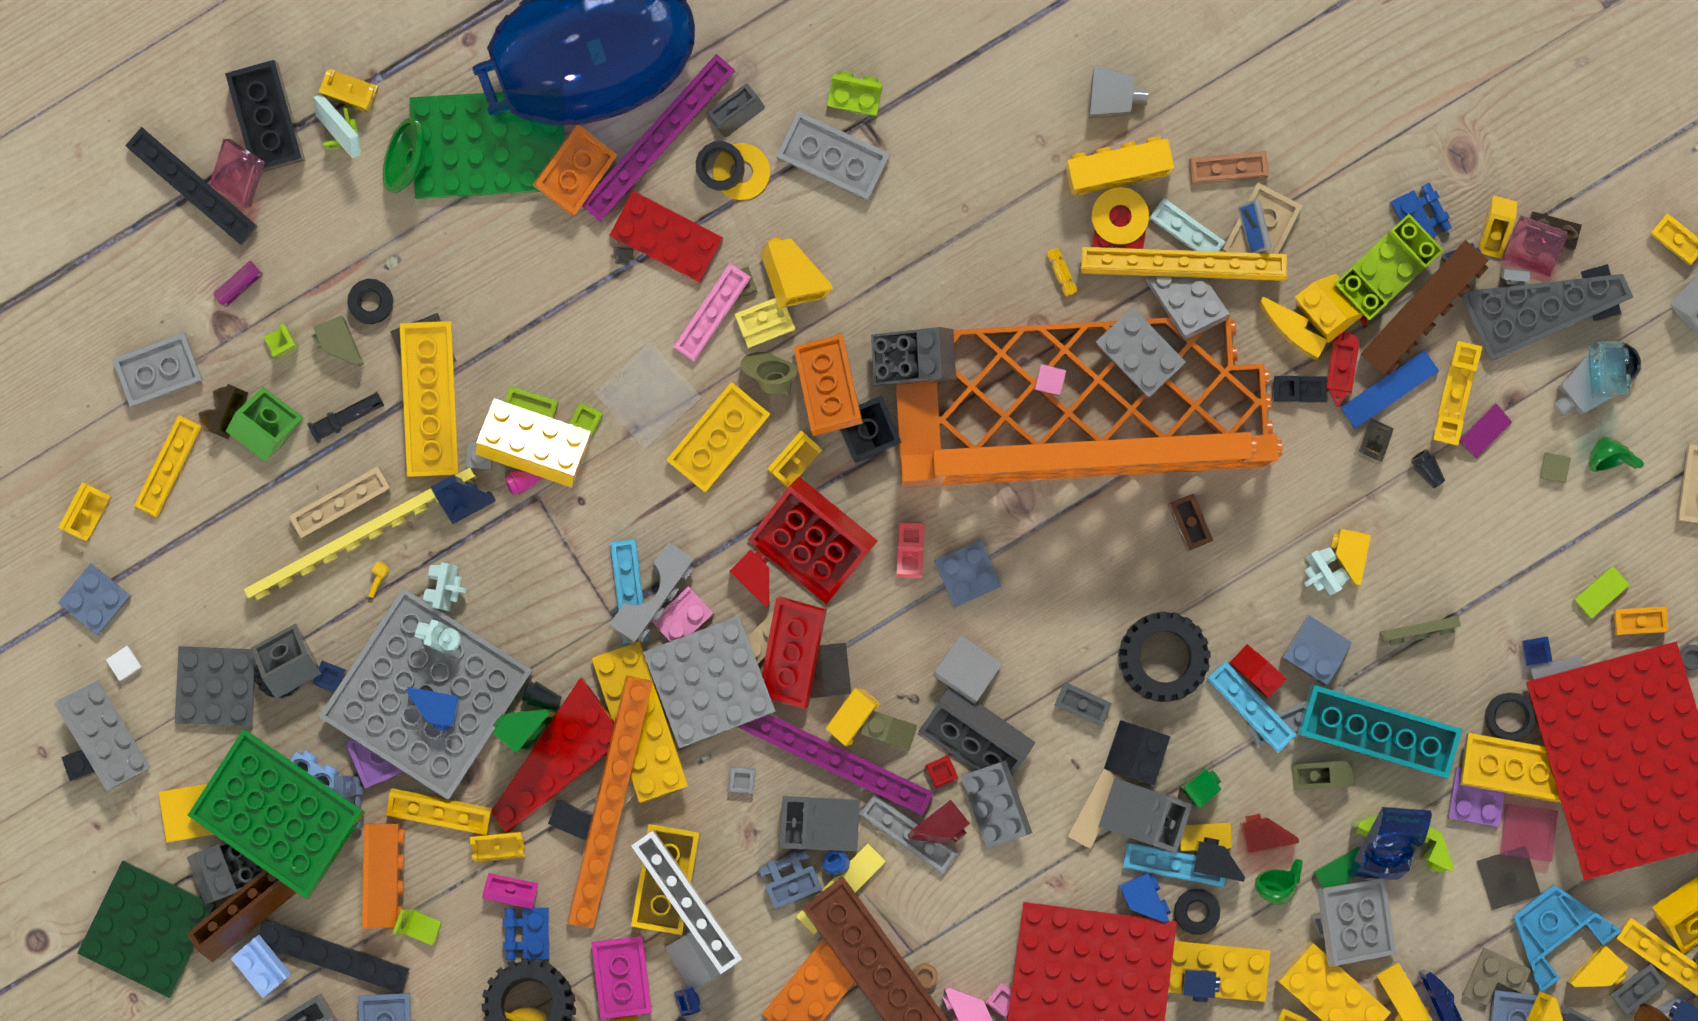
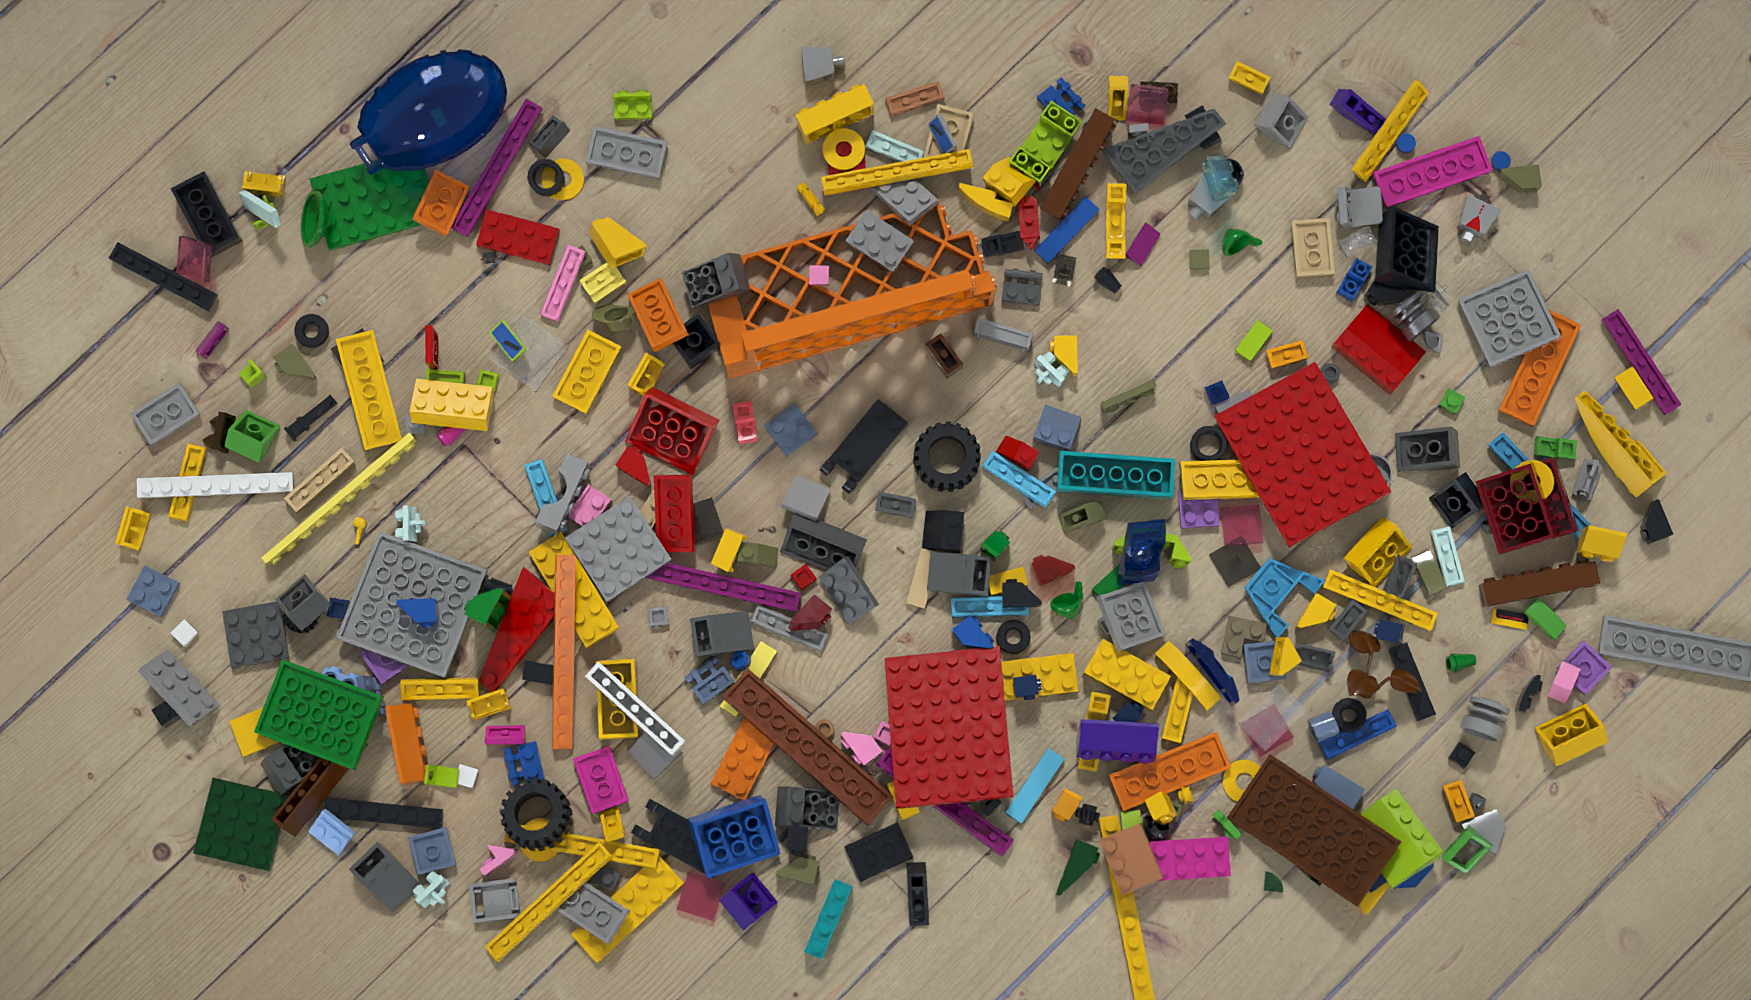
camera: 15 degrees left, 5 degrees down
(203, 478) = (215, 485): none -> white plate
(438, 636) = (411, 558): light aqua hips -> none
(450, 932) = (467, 776): none -> white tile
(460, 498) = (407, 456): dark blue wing -> none
(522, 361) = (431, 347): none -> red tile
(624, 374) = (508, 341): none -> slope
(687, 1001) = (653, 786): clear blue plate -> none
(1062, 614) = (865, 443): none -> black hinge
(1274, 510) = (1003, 334): none -> light grey container
(1309, 459) = (1022, 293): none -> dark grey plate

